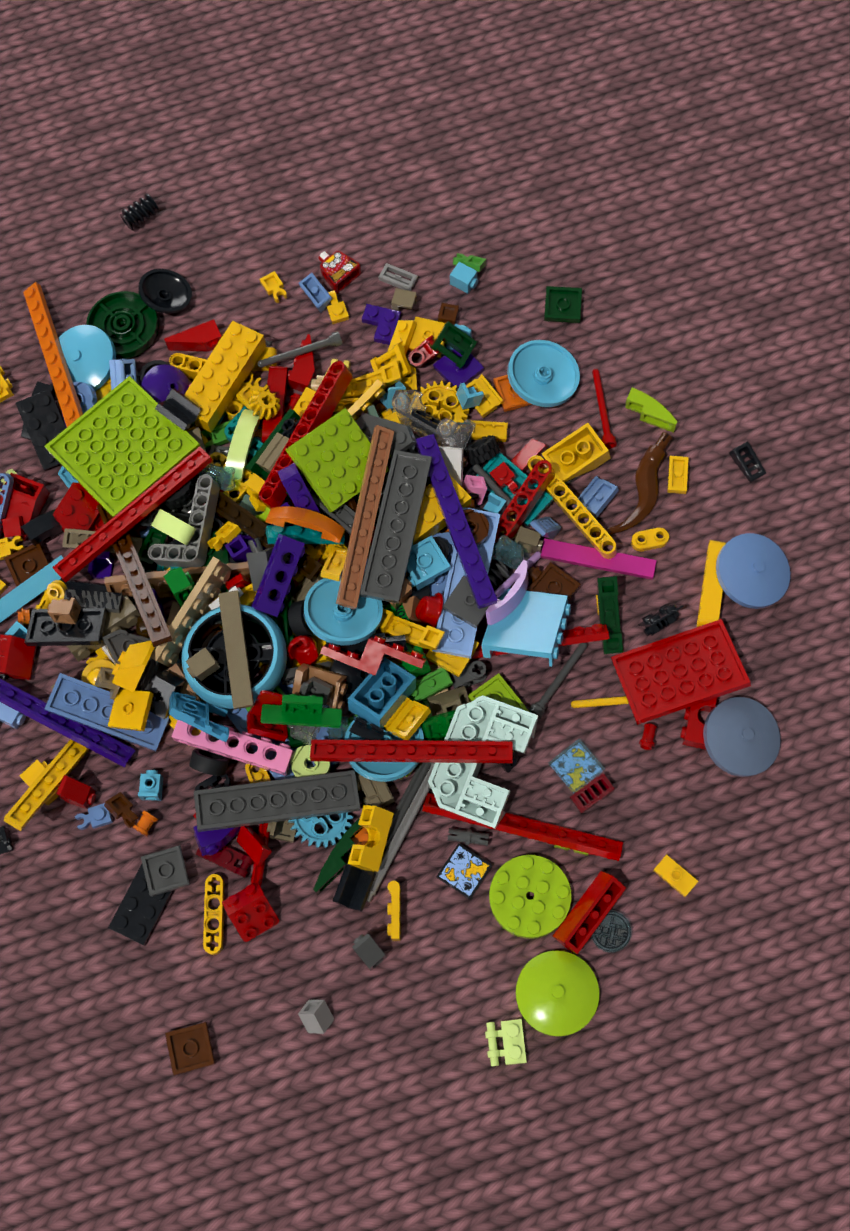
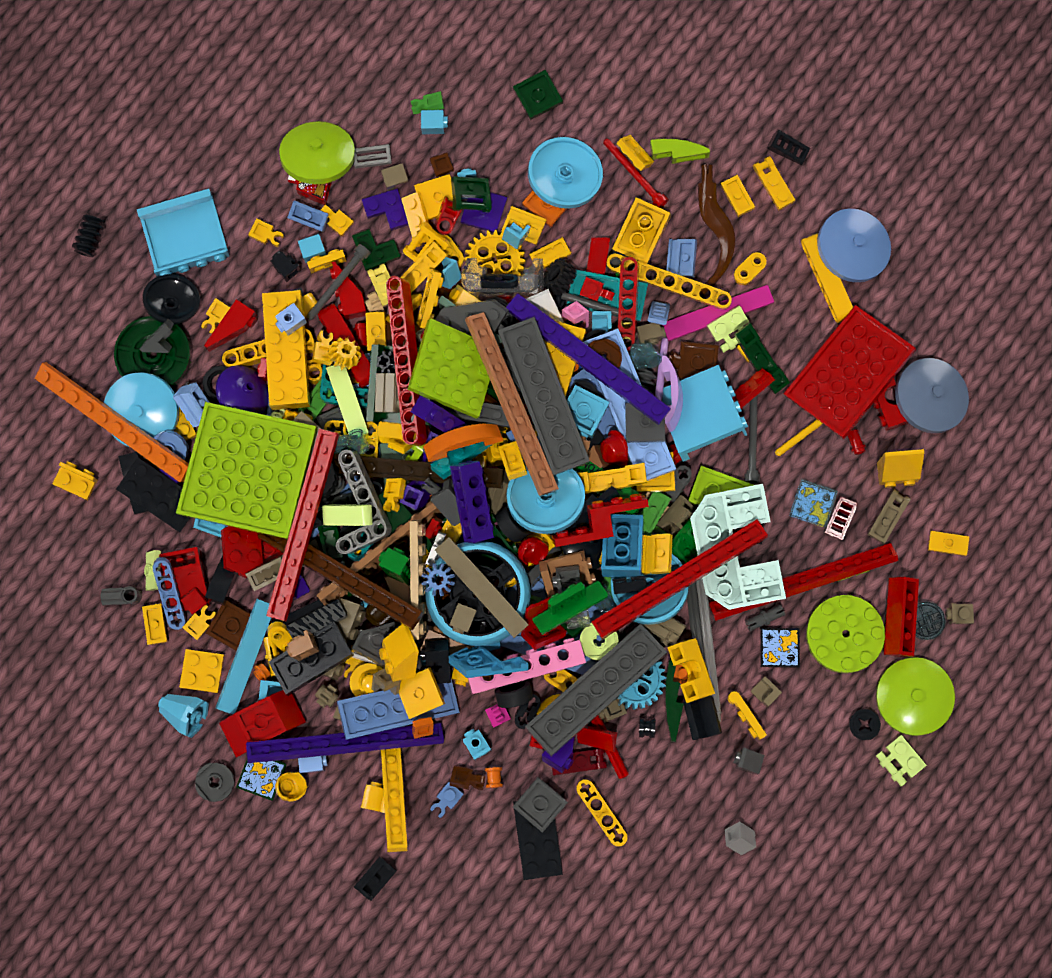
camera: 35 degrees left, 10 degrees up
(60, 665) = (326, 695): none -> dark tan gear
(76, 792) = (421, 789): red slope -> none
(114, 741) = (422, 727): none -> orange plate
(130, 311) = (157, 342): none -> dark grey slope
(179, 410) = (276, 406): black panel -> none
(186, 774) = (497, 715): none -> dark pink tile
(190, 1048) = (657, 928): reddish brown plate -> none
(191, 321) = (216, 313): none -> yellow plate
(209, 624) = (441, 573): none -> medium blue gear
(213, 251) = (183, 233): none -> medium azure panel
(236, 349) = (290, 319): none -> light blue brick
(250, 912) = (632, 791): red bracket -> none
(271, 318) = (284, 265): none -> black brick
(300, 317) = (311, 247): none -> medium azure panel
(300, 332) = (319, 263): none -> yellow plate
(301, 865) = (647, 728): none -> black wheel
(349, 351) = (379, 254): none -> dark green plate
(355, 248) = (317, 152): none -> lime dish
(425, 902) = (766, 692): none -> dark tan panel
(486, 983) = (874, 724): none -> black gear
(592, 569) = (725, 325): none -> yellowish green plate
(613, 392) = (635, 152): none -> yellow plate
(635, 818) = (888, 517): none -> dark tan plate
(646, 945) = (960, 613): none -> dark tan bracket
(667, 615) = (804, 330): black hinge -> none
(672, 779) = (900, 468): none -> yellow slope
(716, 484) = (774, 183): none -> yellow plate

